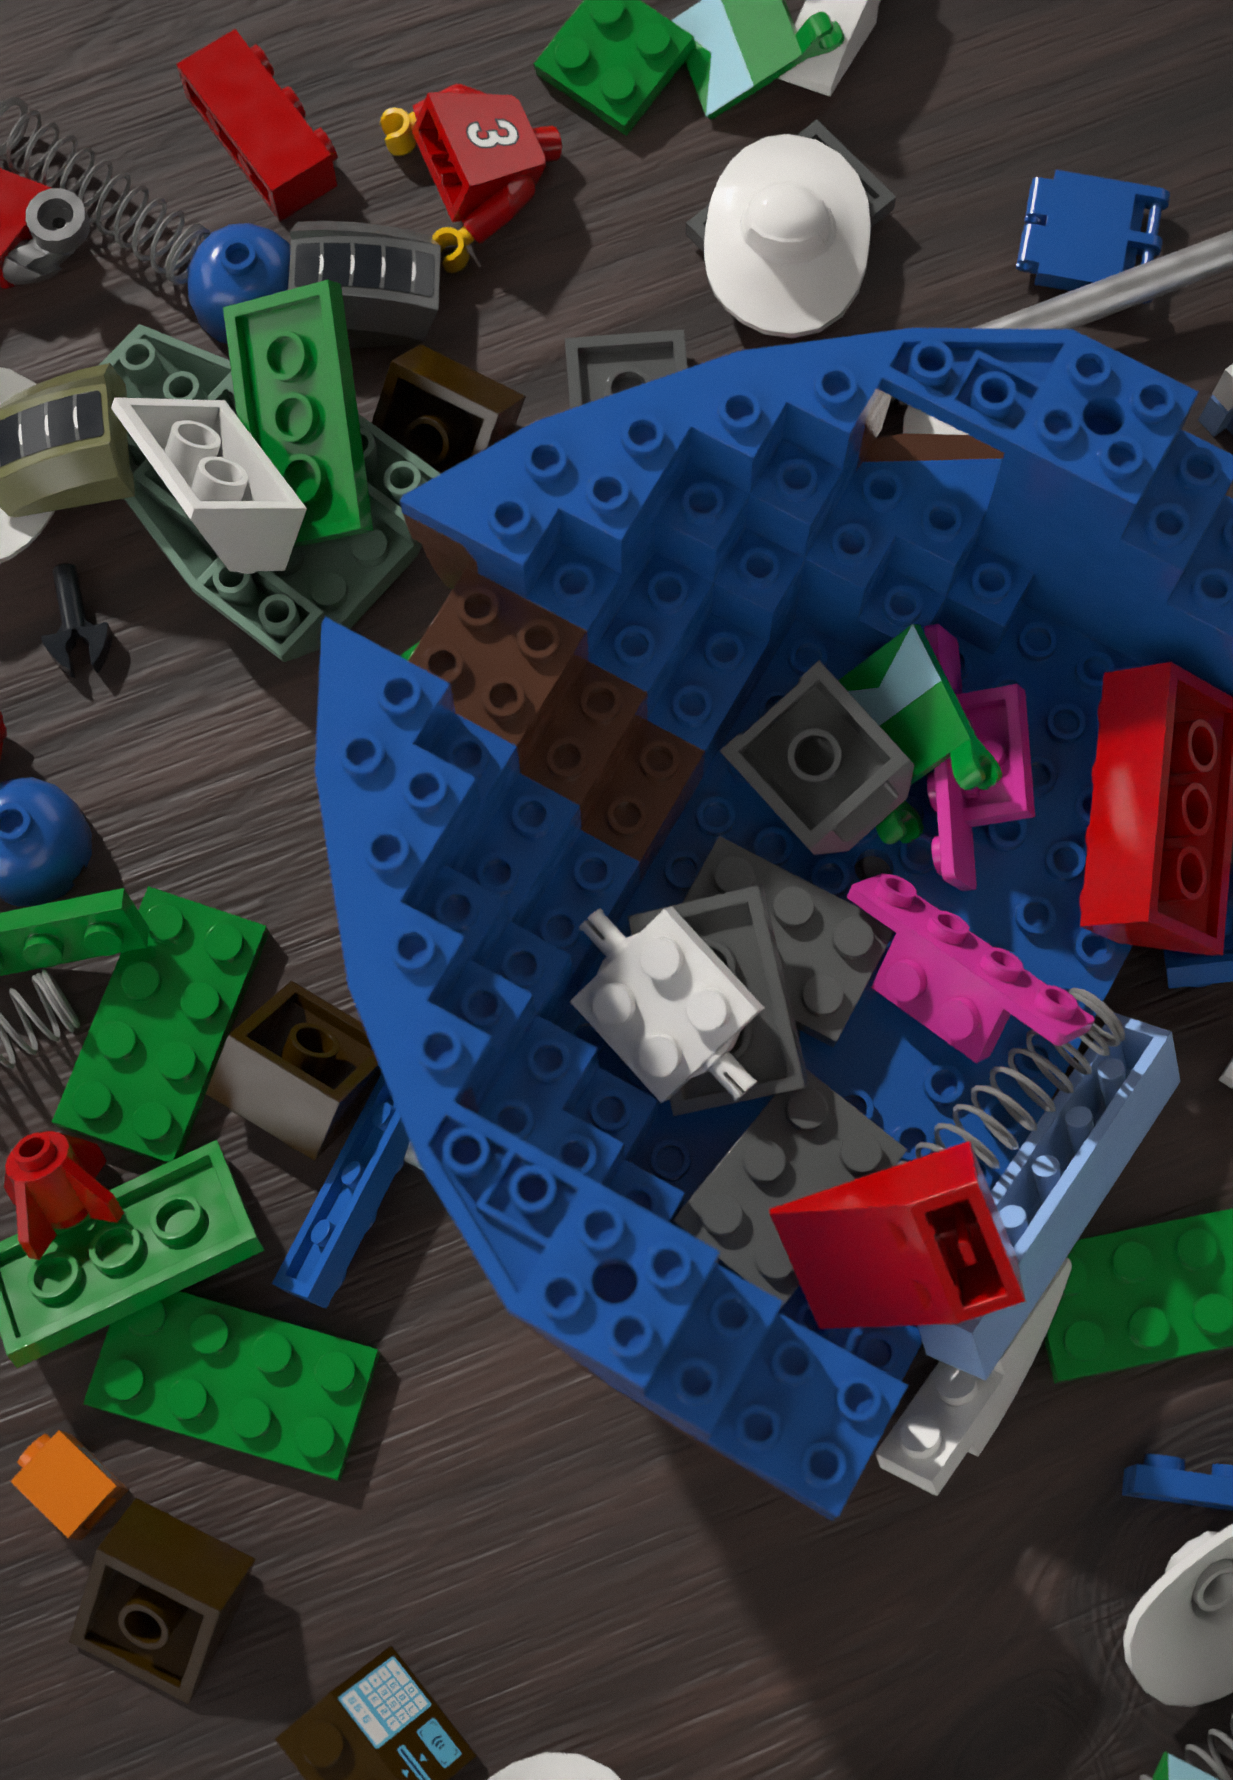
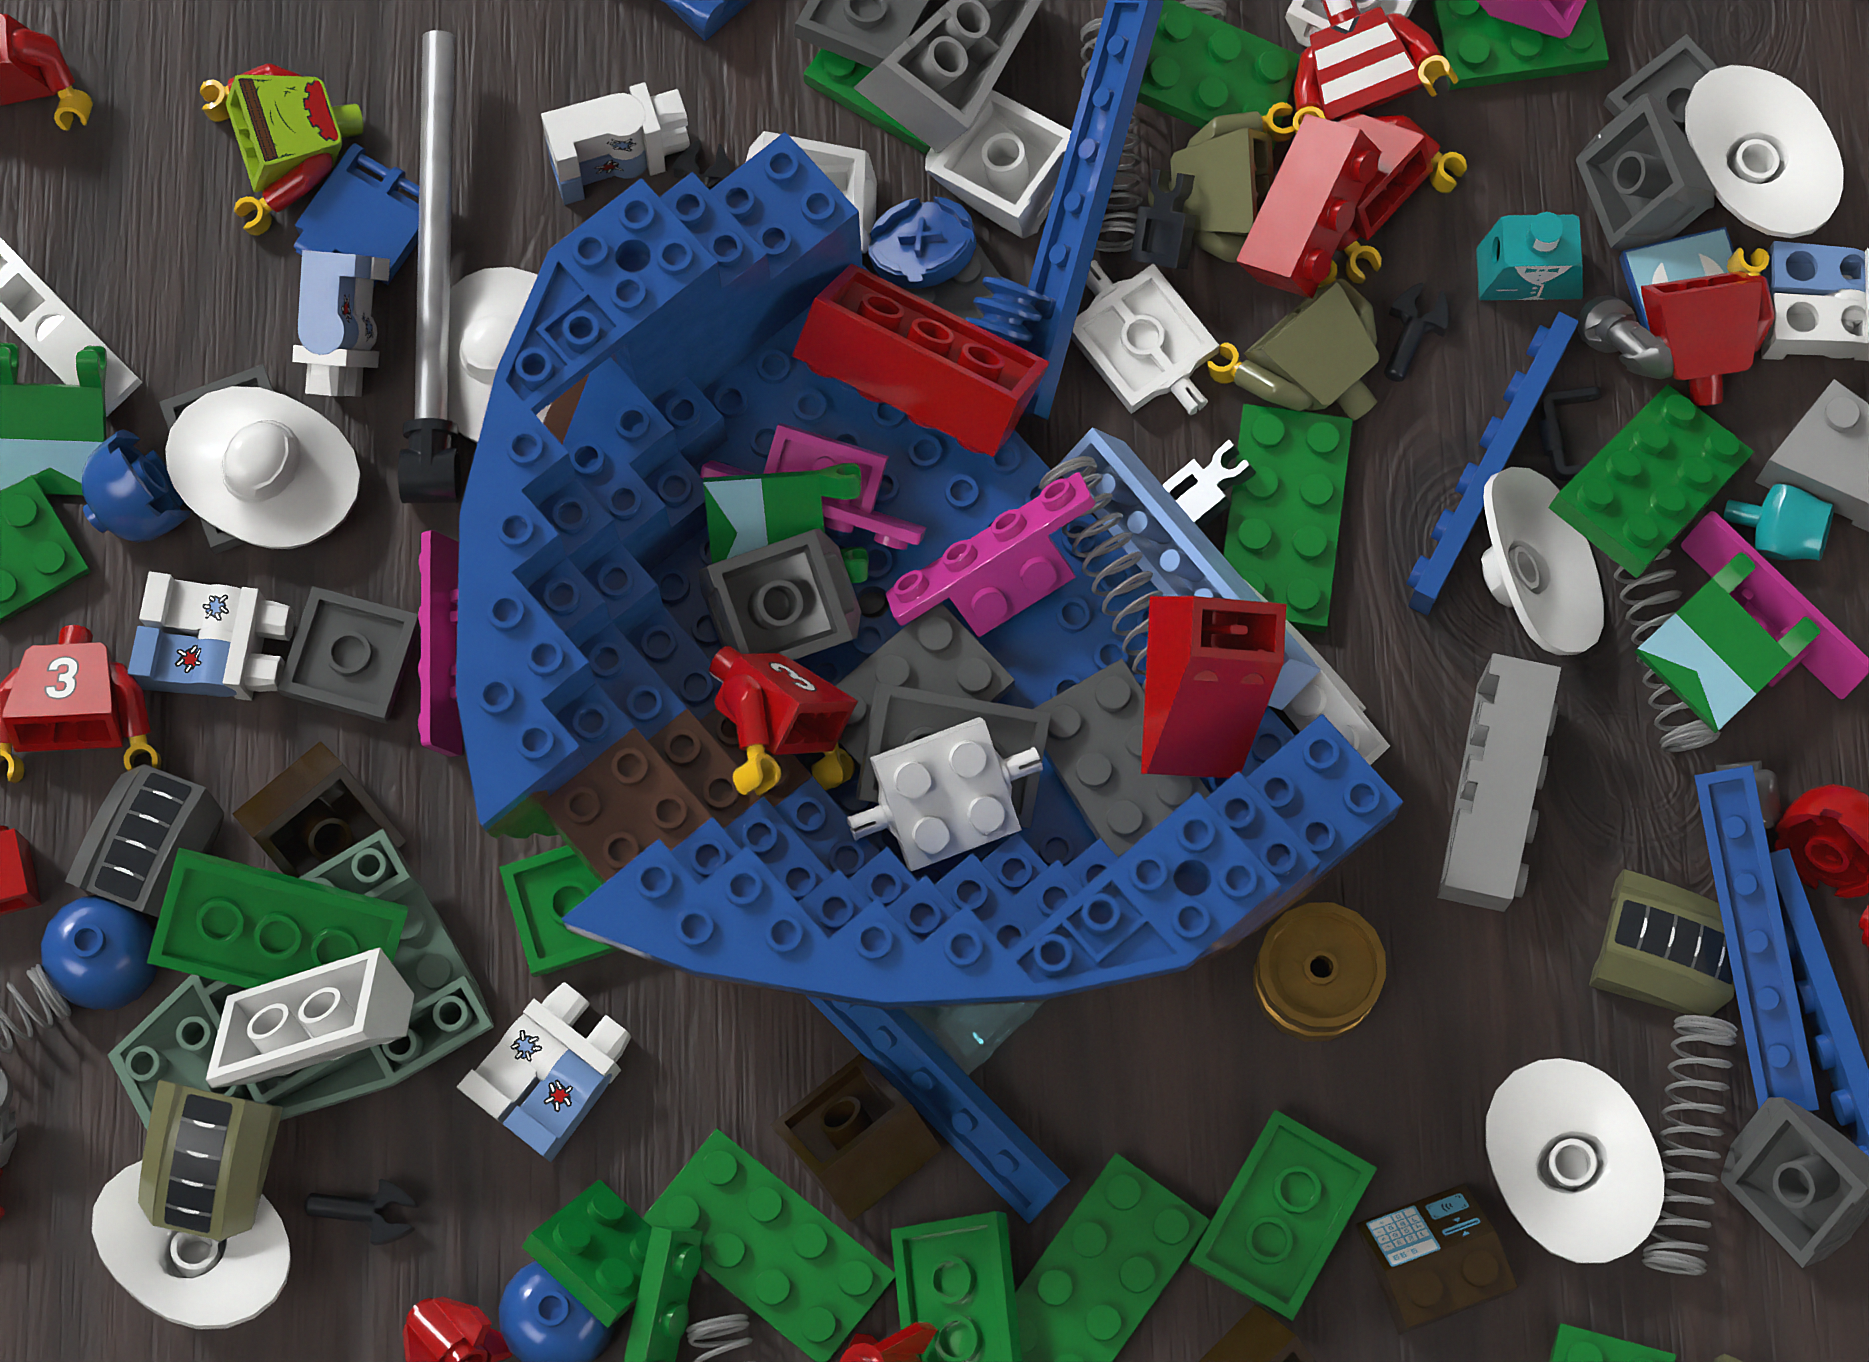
camera: 70 degrees left, 0 degrees up
(91, 845) = (594, 1251): none -> green plate
(251, 736) = (546, 1073): none -> hips
(368, 1558) = (1282, 1216): none -> green plate
(596, 279) = (207, 639): none -> white hips
(623, 1471) = (1311, 1005): none -> pearl gold wheel
(688, 792) = (785, 712): none -> red torso
(711, 123) = (130, 491): none -> blue cylinder
(948, 1641) = (1499, 783): none -> light grey wedge
(966, 238) = (337, 320): none -> hips
(1145, 122) = (283, 132): none -> torso
(1157, 1183) = (1201, 491): none -> plate

